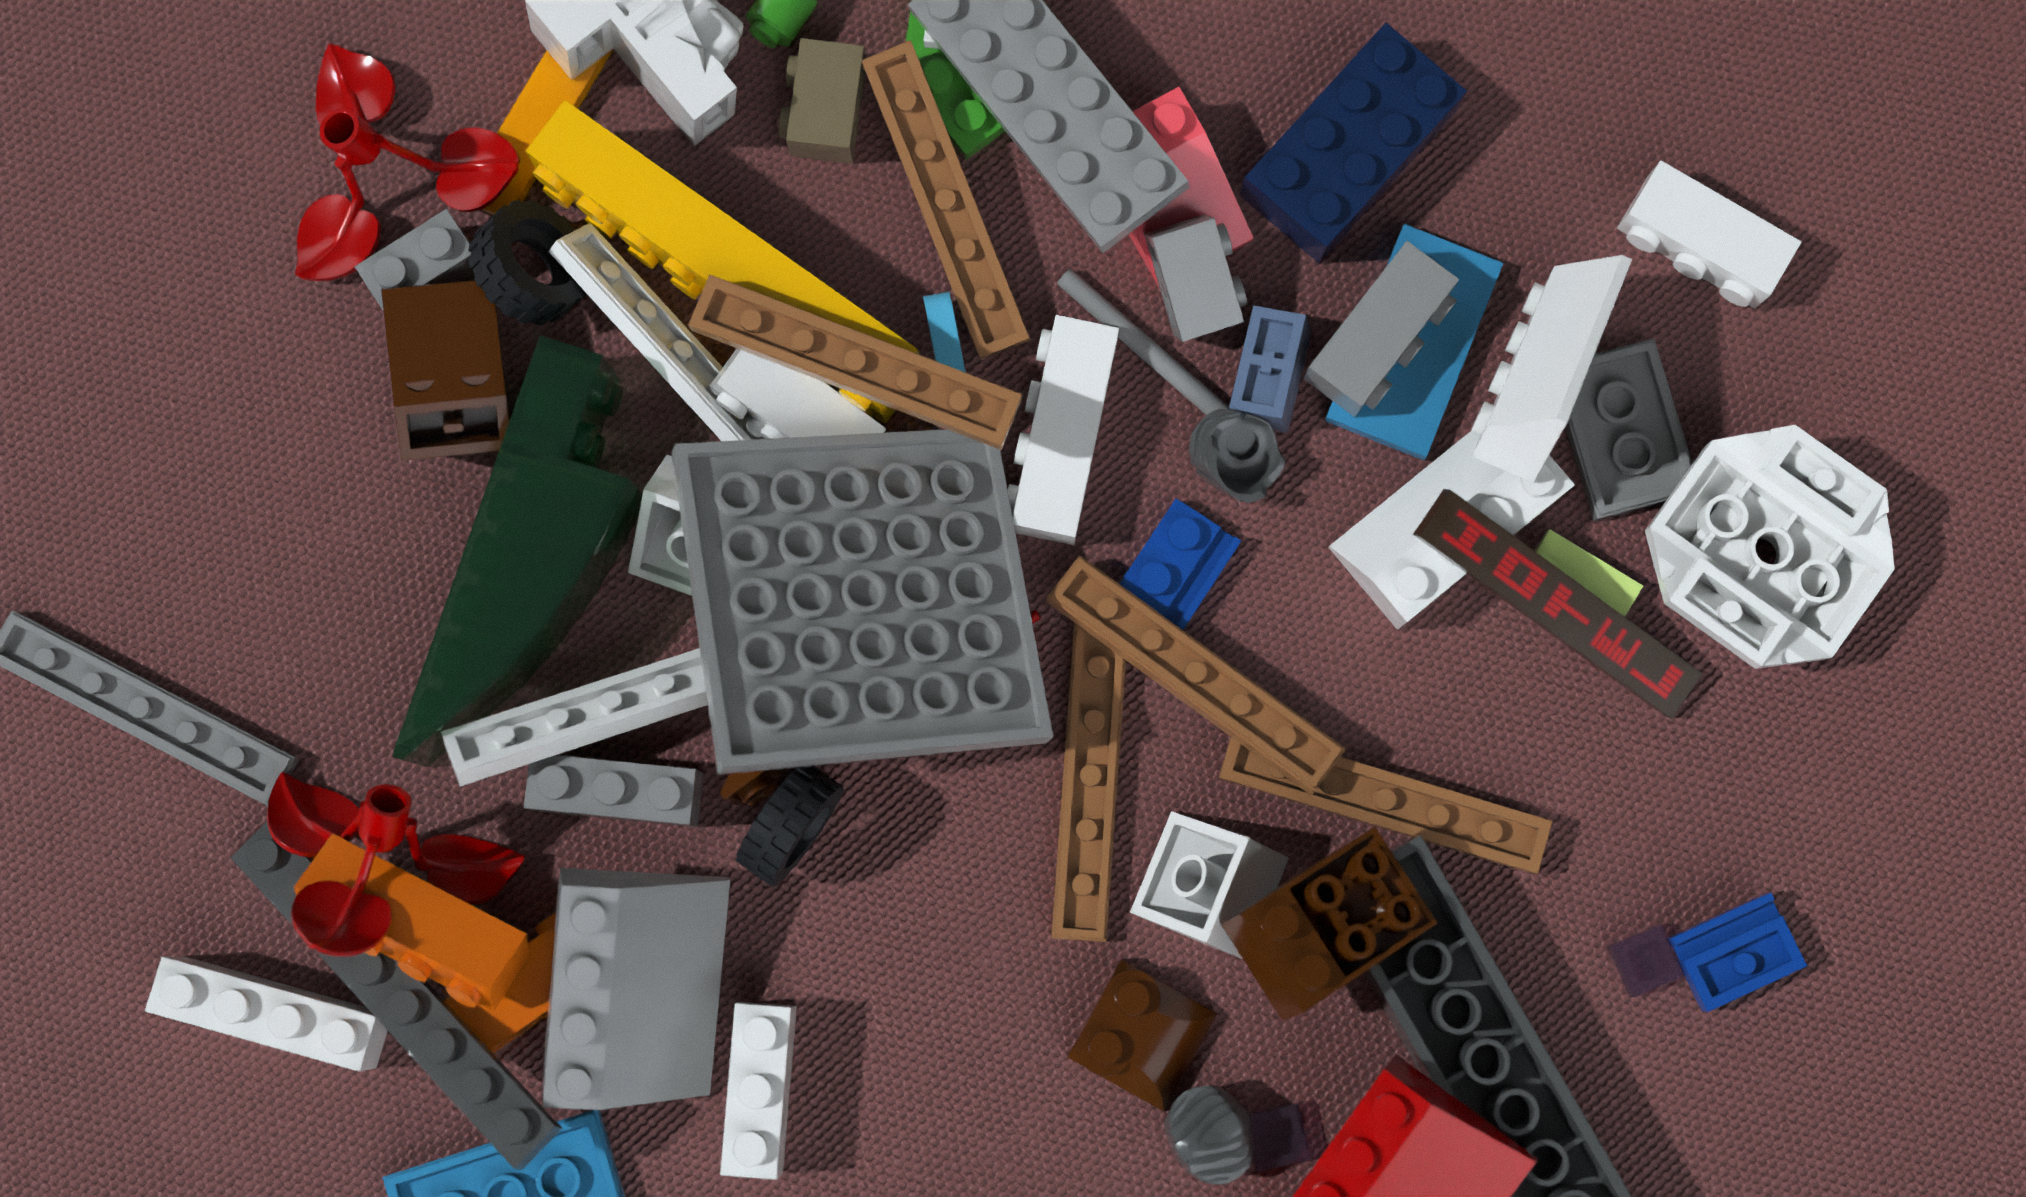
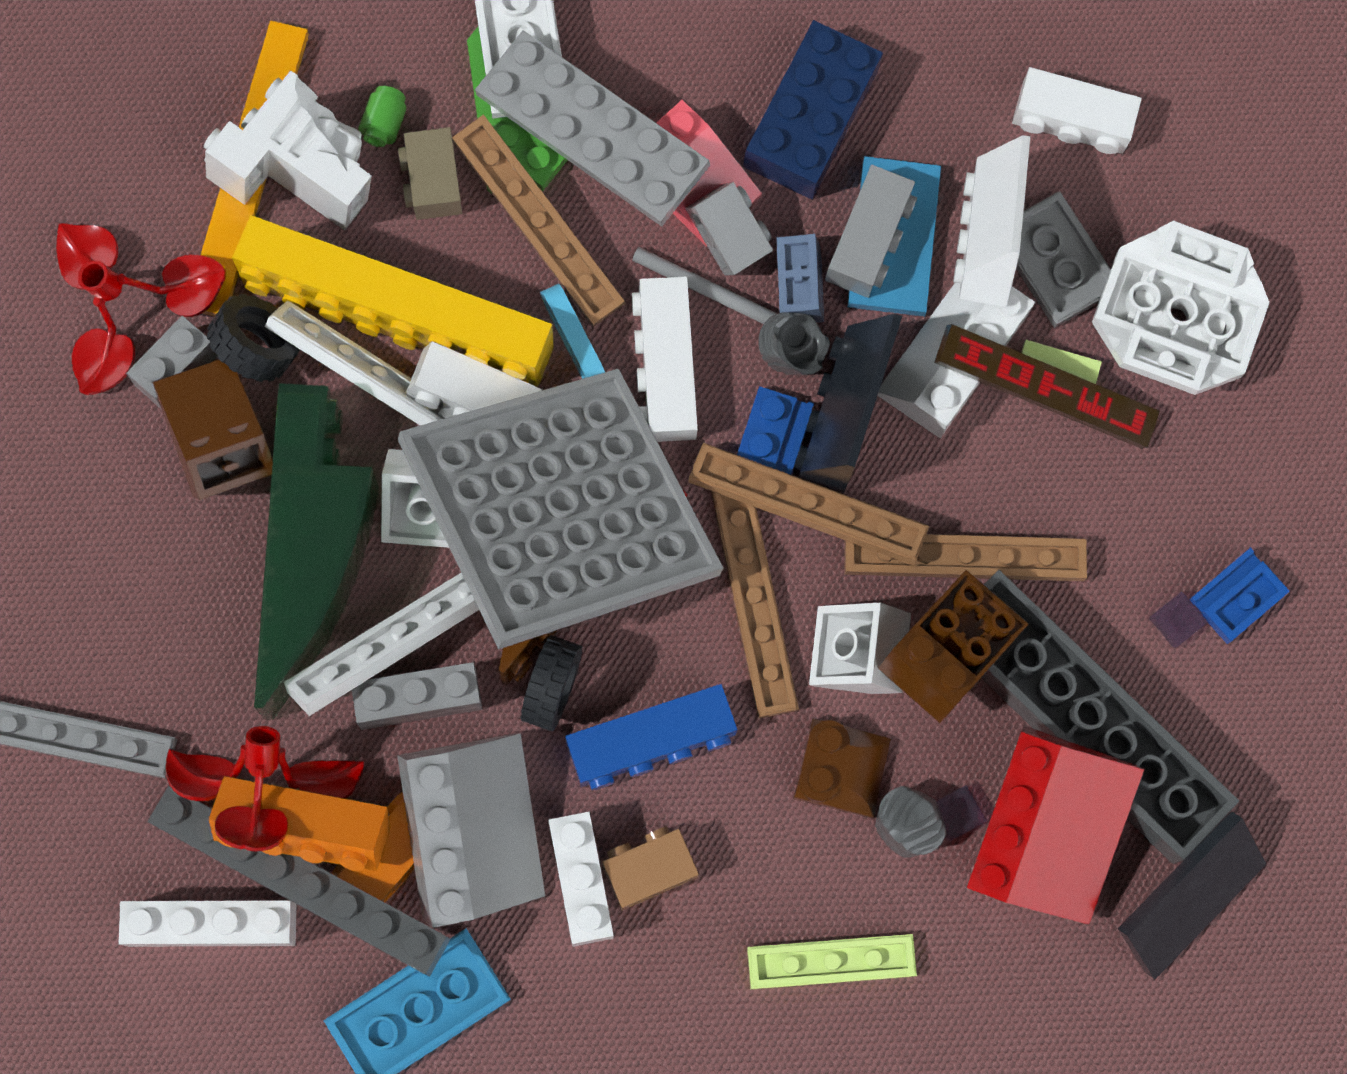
camera: 25 degrees left, 5 degrees down
(851, 1099) = (649, 868): none -> medium nougat brick
(855, 362) = (511, 342): medium nougat plate -> none
(902, 926) = (651, 736): none -> blue brick
(1283, 556) = (847, 402): none -> black slope

